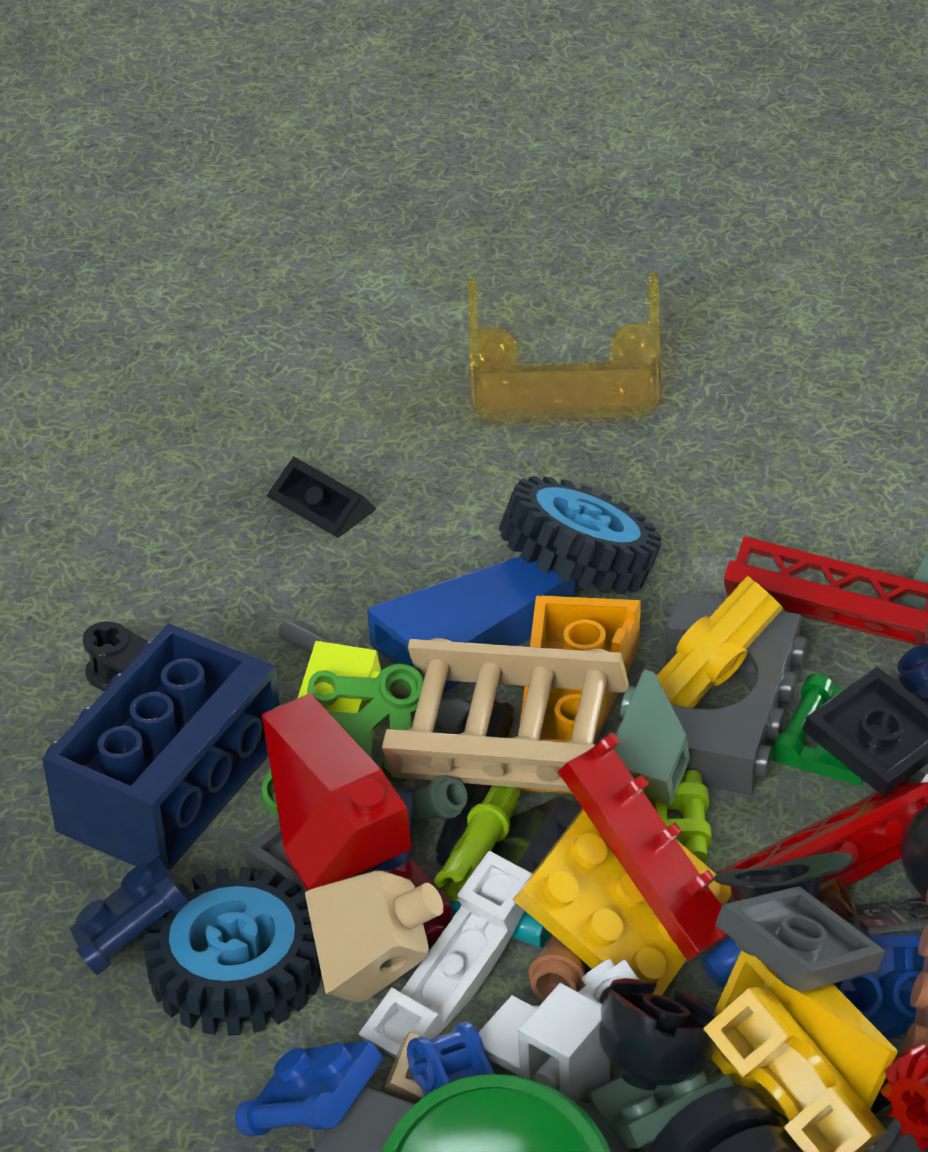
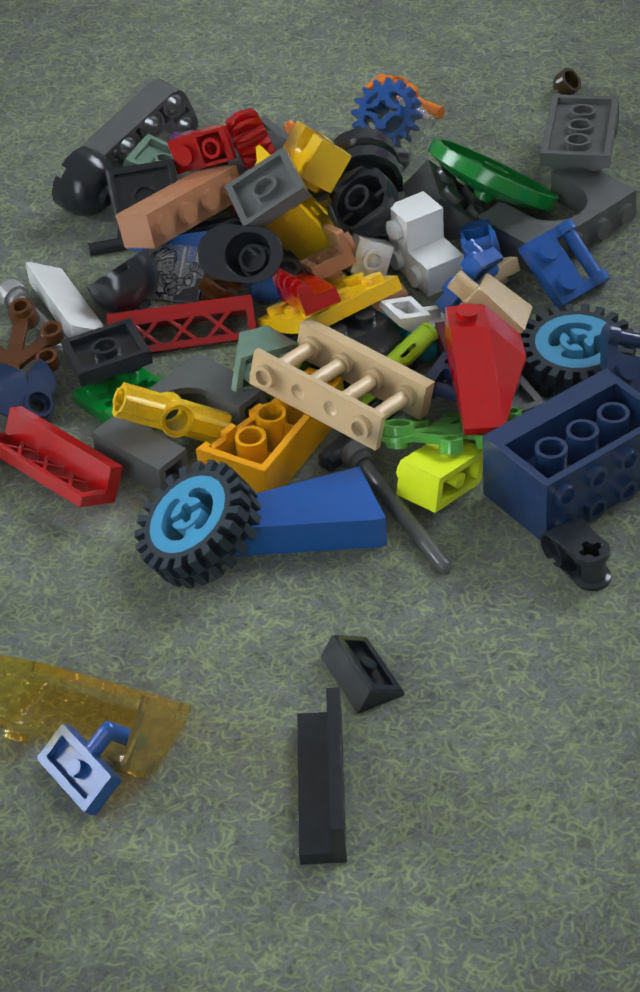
camera: 155 degrees left, 0 degrees up
(301, 387) = (322, 784): none -> black fence
(431, 966) = (475, 266): none -> blue plate
(524, 326) = (79, 764): none -> plate
(669, 954) = (333, 259): none -> nougat bracket

